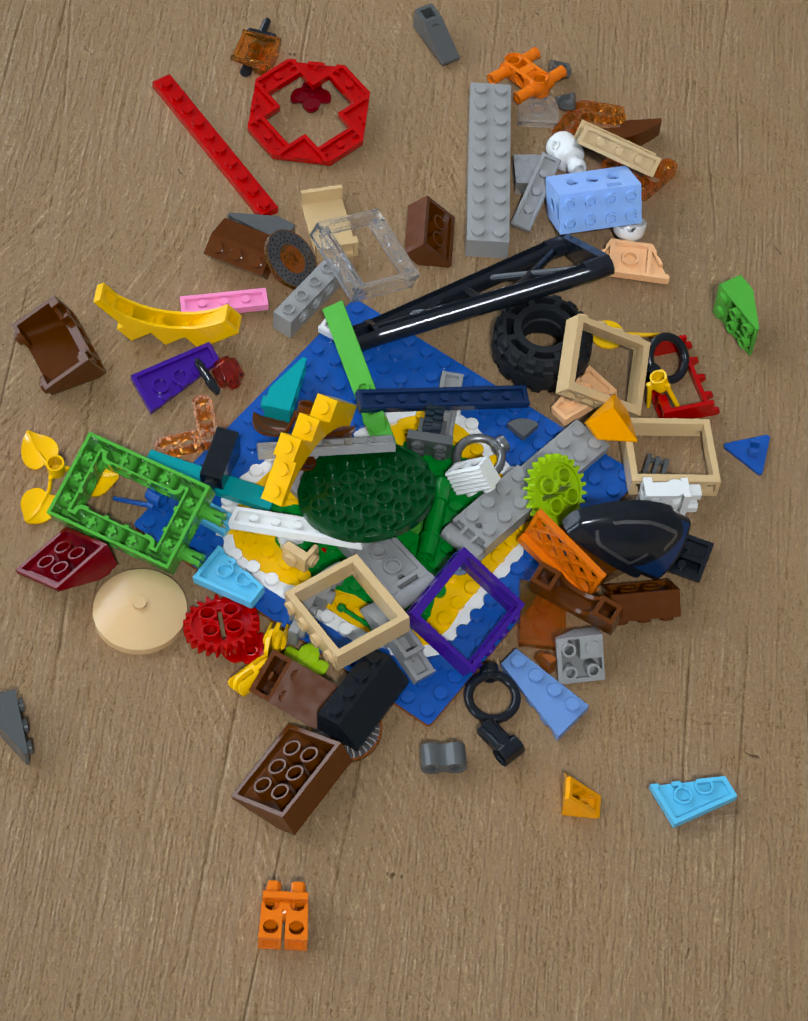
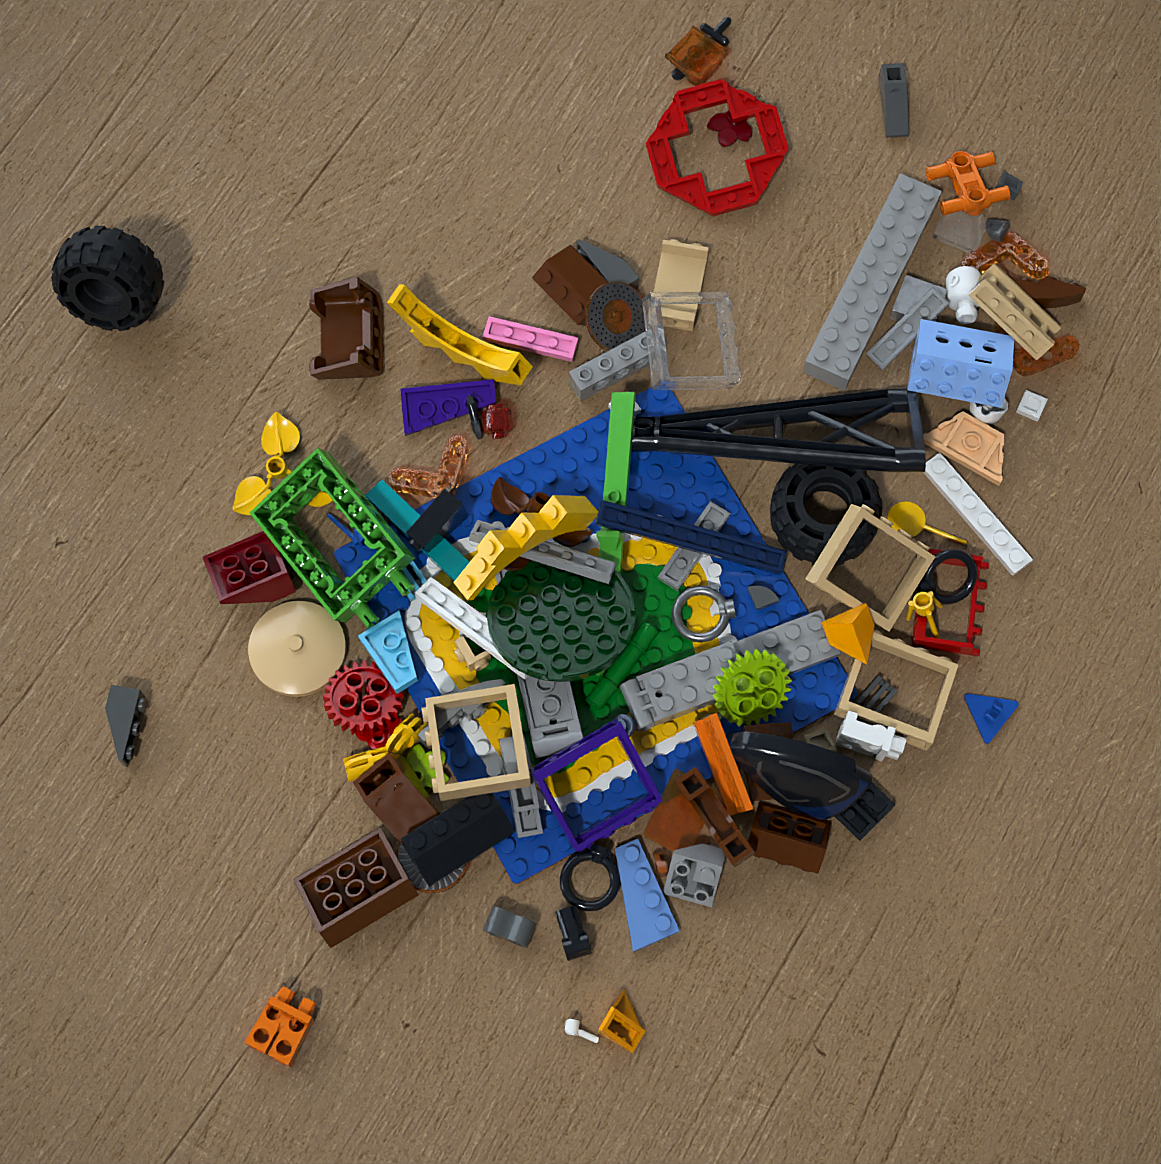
camera: 30 degrees right, 15 degrees up
(214, 146) = (605, 153): red plate -> none
(284, 393) = (538, 468): teal slope -> none
(342, 608) = (486, 725): green hinge -> none
(429, 233) = (775, 336): reddish brown slope -> none
(431, 436) = (659, 572): dark grey plate -> none
(473, 476) = (678, 638): white brick -> none
(538, 818) = (572, 1028): none -> white hand
(569, 410) = (853, 577): light nougat wing -> none
(661, 310) = (976, 514): none -> white plate
(662, 219) = (1031, 405): none -> white tile
(692, 799) = (730, 1074): medium azure wing -> none
(738, 312) = (1053, 546): bright green slope -> none

